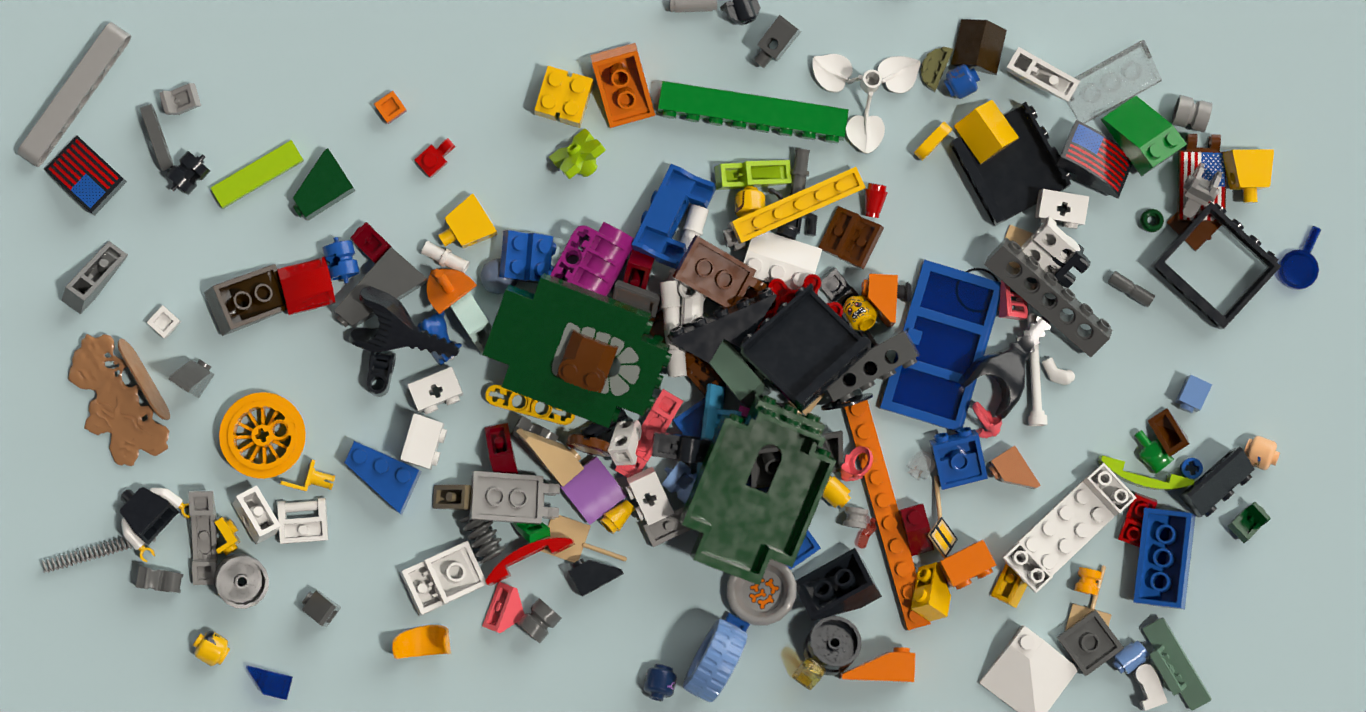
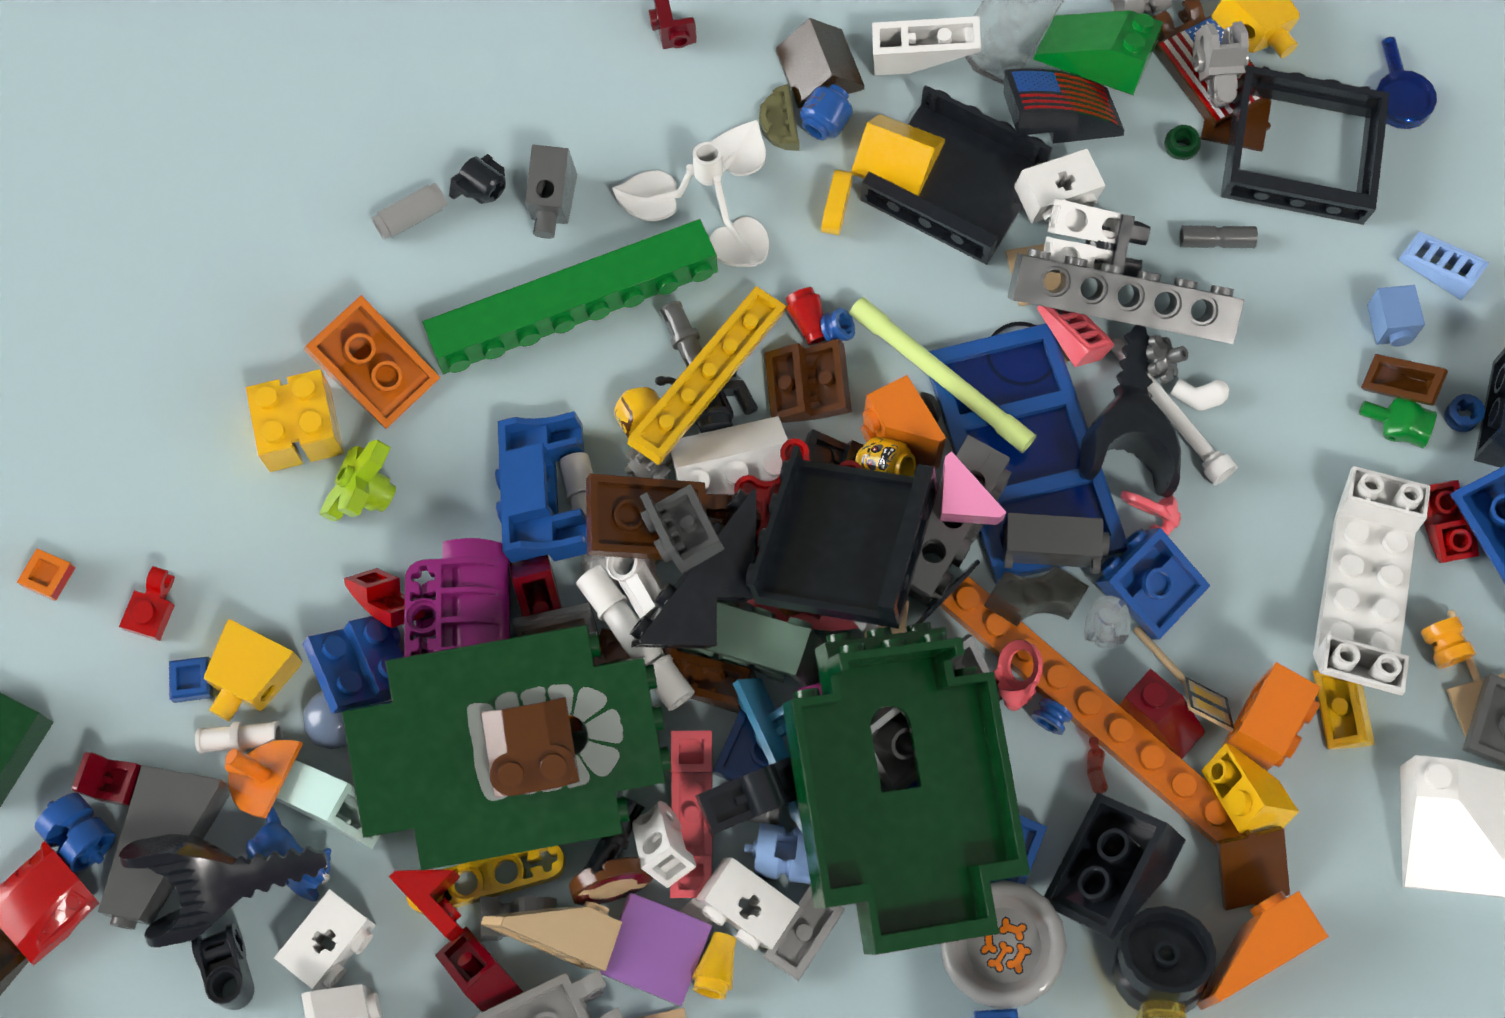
camera: 25 degrees left, 15 degrees down
(436, 210) = (188, 681): none -> blue tile
(496, 395) = (424, 890): none -> red slope
(556, 226) = (380, 596): none -> red slope
(726, 294) = (682, 528): none -> dark grey bracket
(752, 174) = (626, 368): lime slope -> none
(836, 492) = (1021, 734): yellow brick -> none
(855, 517) = (1066, 752): light grey wheel -> none
(860, 495) = (1051, 716): none -> blue bush
(879, 363) = (965, 497): none -> bright pink slope
(884, 425) = (1021, 597): none -> clear smoke tile
(886, 216) = (837, 325): none -> blue bush
(908, 629) = (1252, 867): none -> reddish brown piece
(920, 407) = (1054, 541): none -> dark grey brick
(937, 327) = (1003, 423): none -> yellowish green piece
(1013, 469) = (1237, 552): nougat slope -> none
(1050, 342) = (1164, 358): none -> dark grey plant
(1172, 482) = (1419, 464): lime slope -> none
(1251, 375) = (1448, 280): none -> light blue slope

